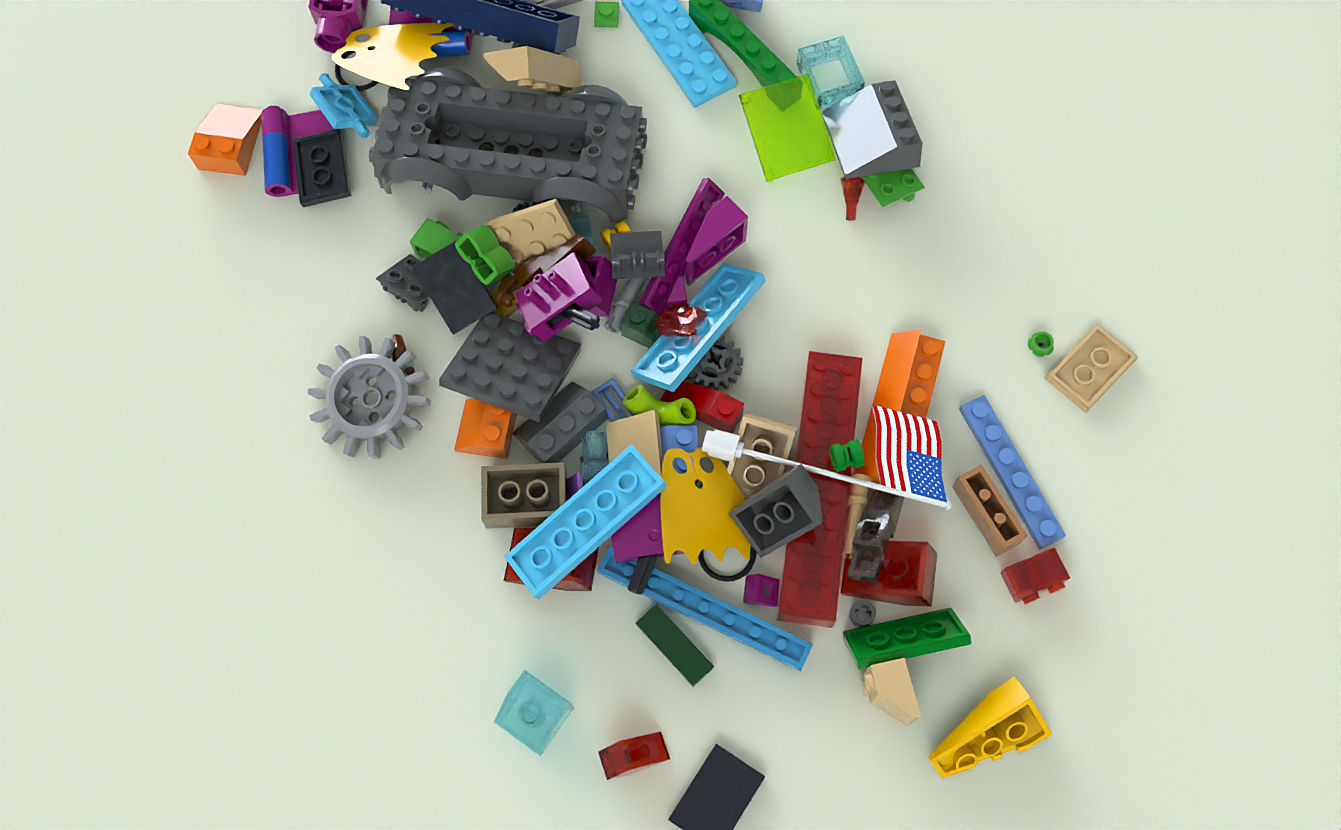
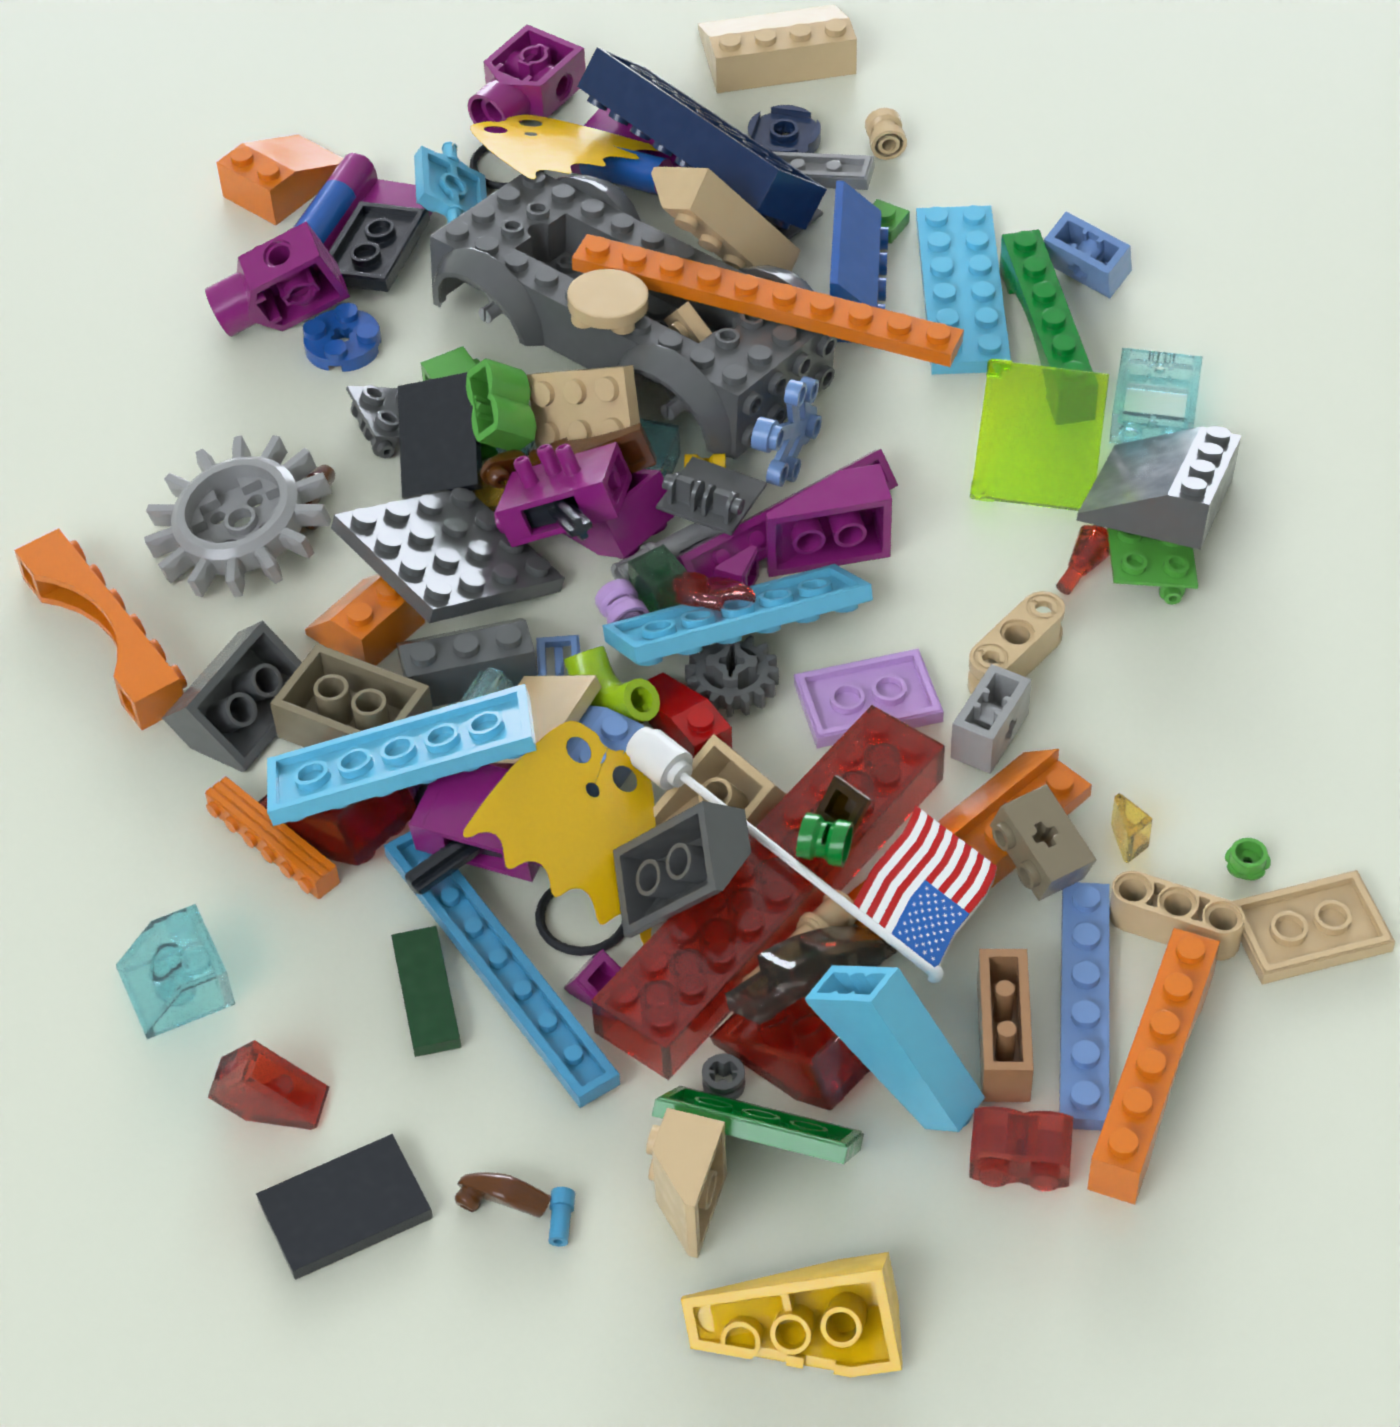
camera: 30 degrees right, 20 degrees down
(286, 226) = (278, 284): none -> magenta brick
(288, 488) = (62, 578): none -> orange arch
(347, 252) = (326, 348): none -> blue plate
(450, 516) = (229, 704): none -> dark grey slope
(514, 160) = (607, 300): none -> tan tile
(519, 595) = (276, 843): none -> orange piece
(558, 149) = (688, 323): none -> tan plate
(599, 115) = (774, 301): none -> orange plate
(616, 57) = (856, 249): none -> blue slope
(627, 349) = (619, 601): none -> lavender wheel
(652, 177) = (791, 435): none -> medium blue plant
(788, 339) = (841, 693): none -> lavender tile
(795, 745) = (502, 1190): none -> reddish brown arm
(828, 734) = (561, 1207): none -> dark azure piece
(842, 429) = (843, 803): none -> dark brown slope
(850, 284) = (1019, 638): none -> tan piece
(870, 325) = (990, 718): none -> light grey brick
(949, 394) = (1042, 842): none -> dark tan brick
(954, 558) = (898, 1042): none -> medium azure slope
(975, 355) = (1130, 827): none -> clear yellow slope
(1038, 390) = (1156, 906): none -> tan beam
(1082, 529) = (1151, 1066): none -> orange arch

